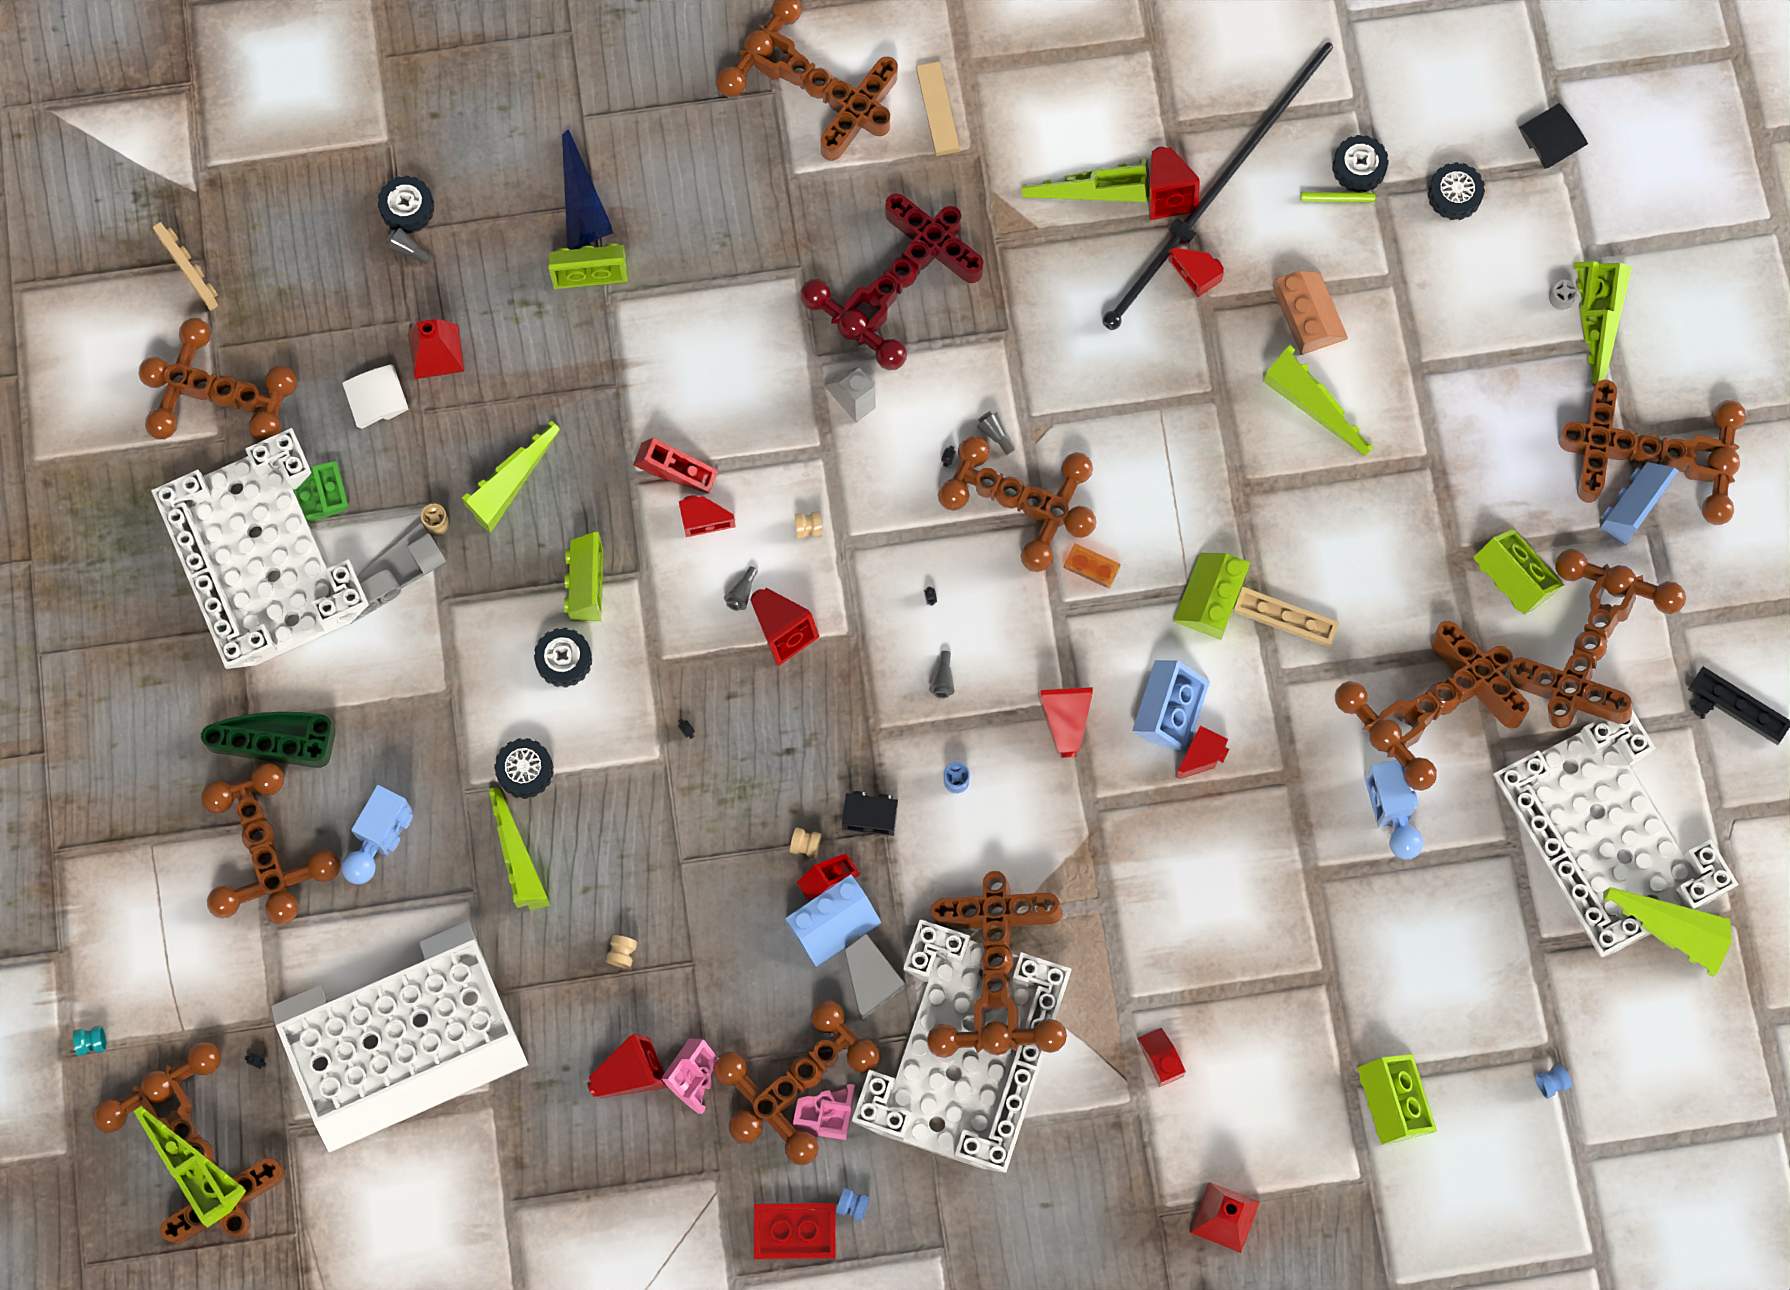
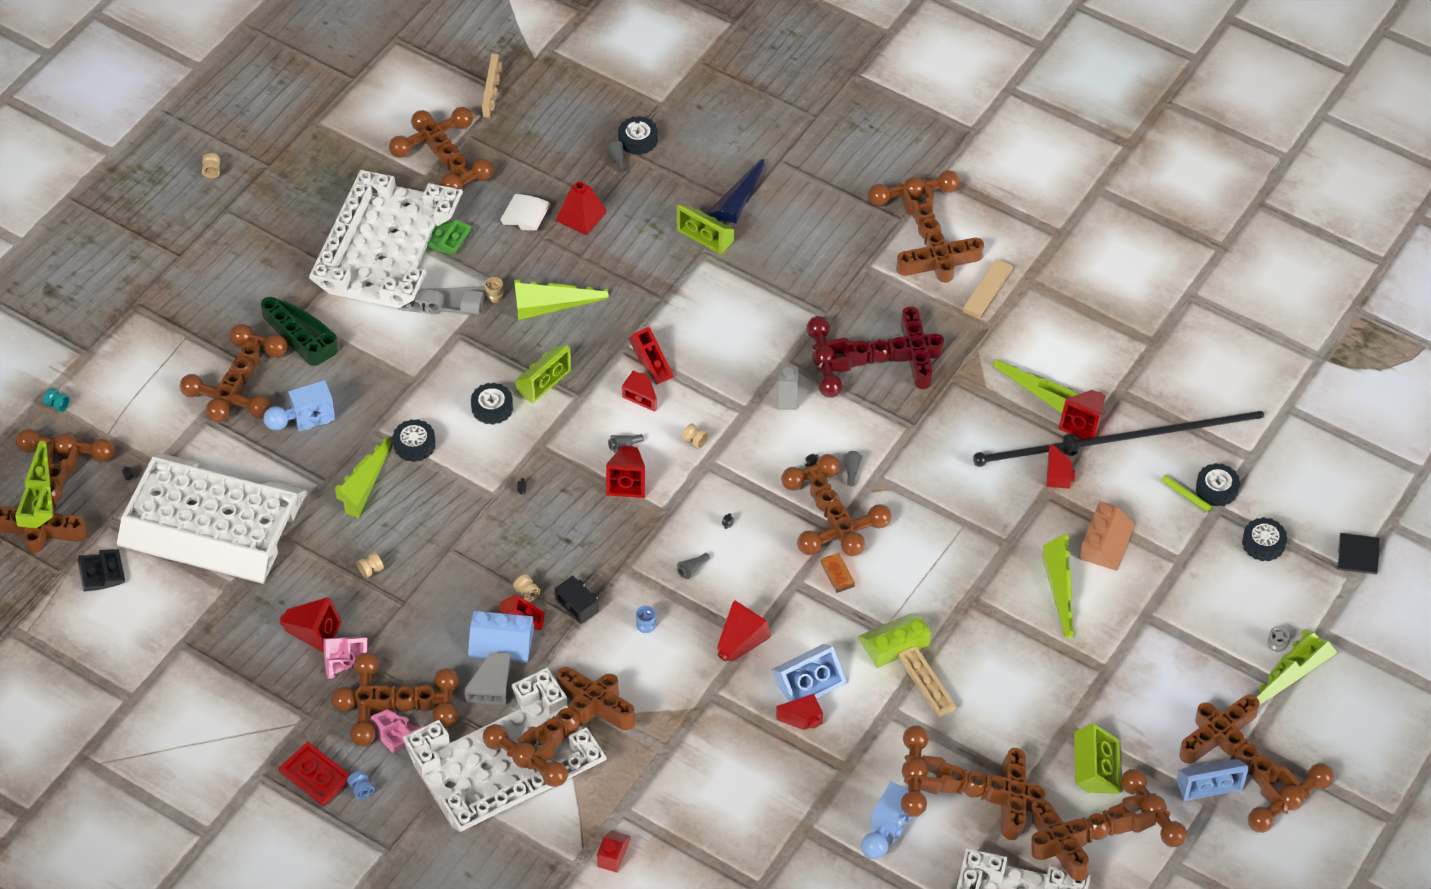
camera: 40 degrees right, 20 degrees down
(341, 1195) = (101, 570): none -> black slope

